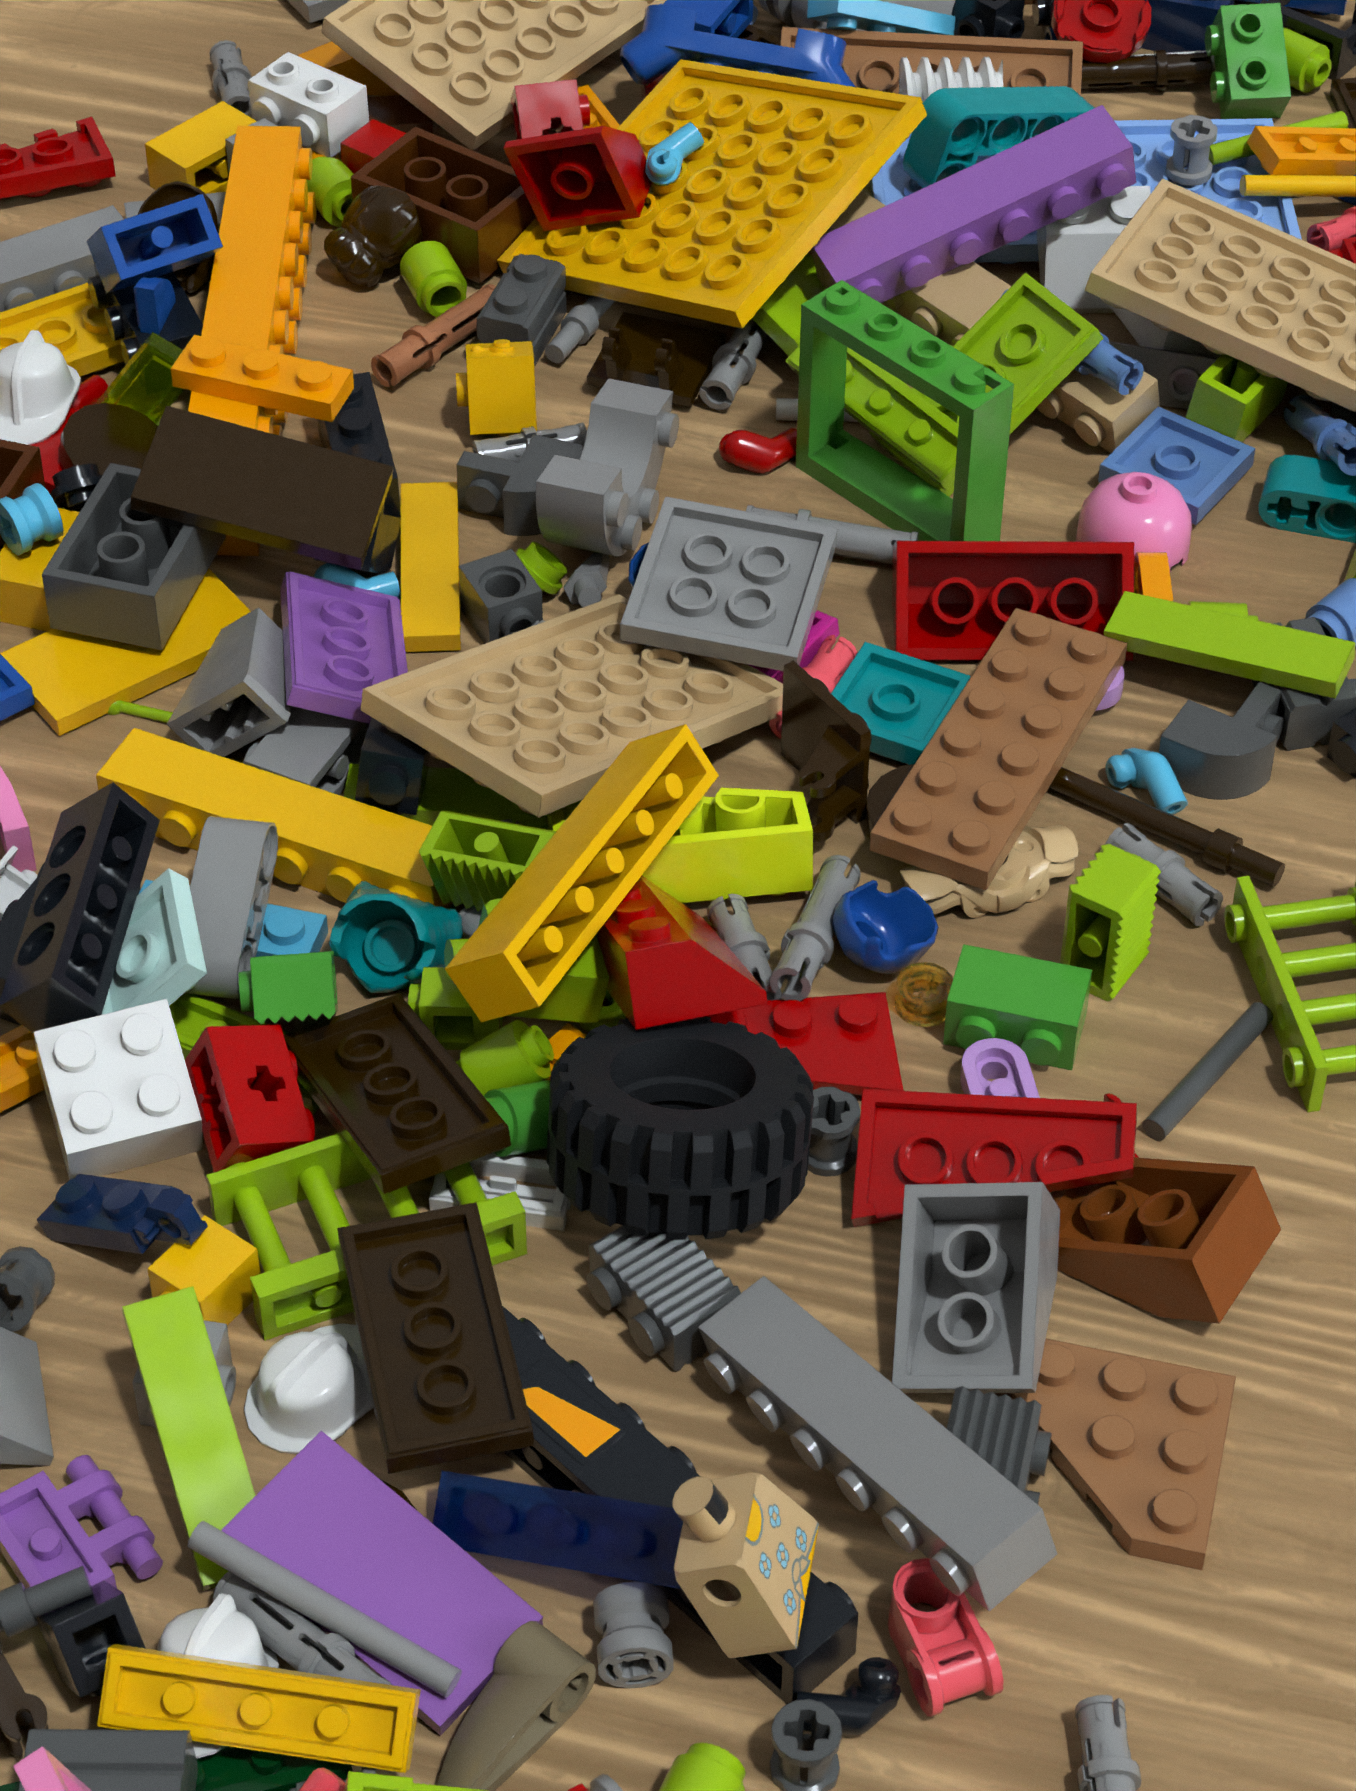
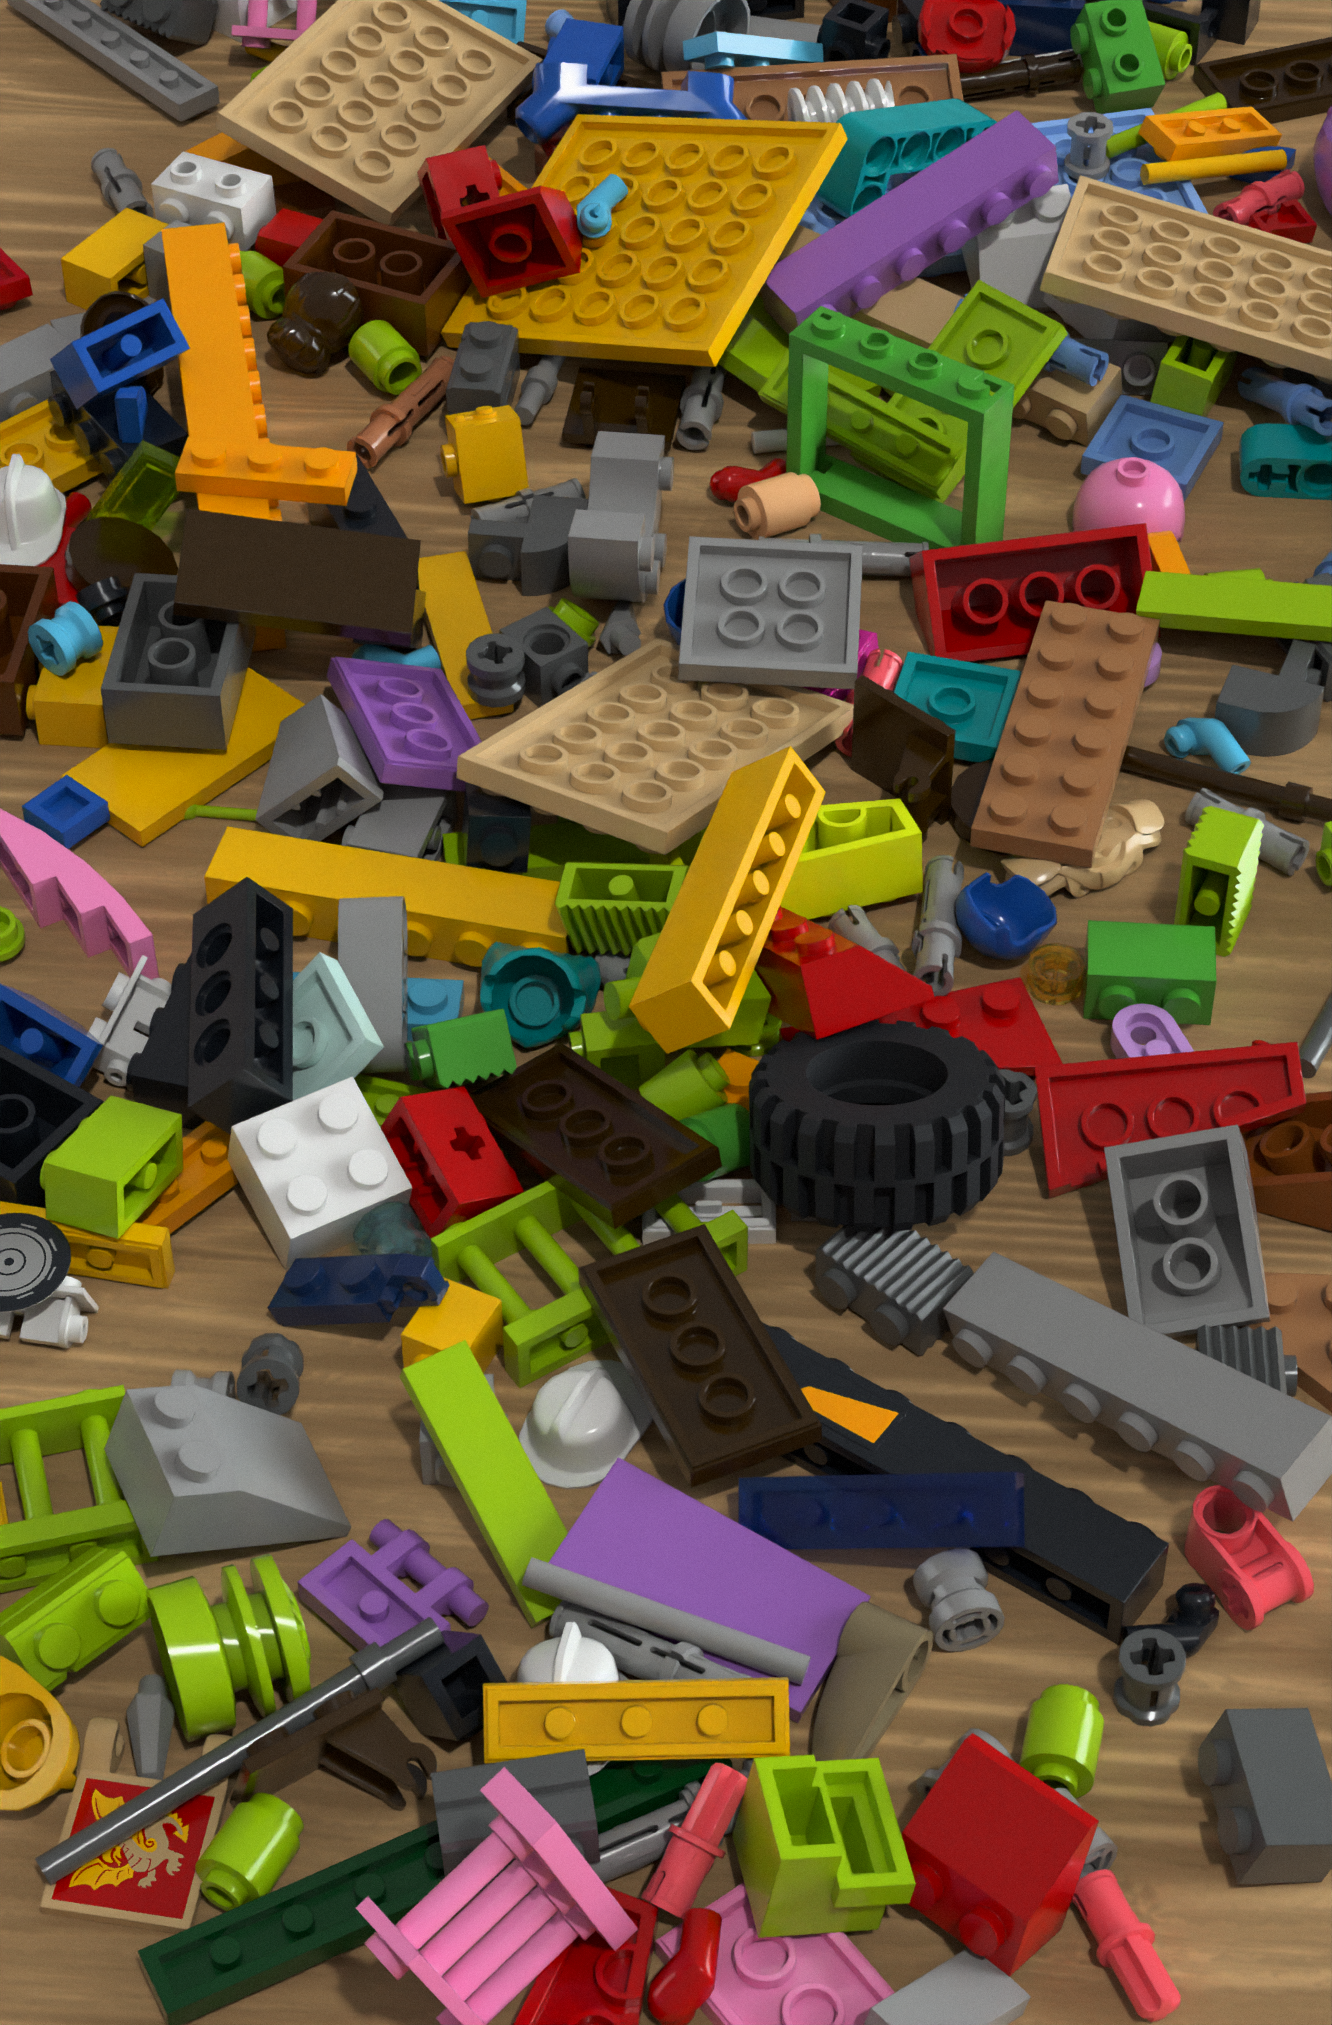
camera: 10 degrees left, 0 degrees up
(178, 1162) = (391, 1230): none -> clear light blue wheel
(445, 606) = (496, 670): none -> dark grey wheel
(745, 1561) = (1060, 1485): tan torso -> none
(778, 475) = (777, 504): none -> light nougat brick

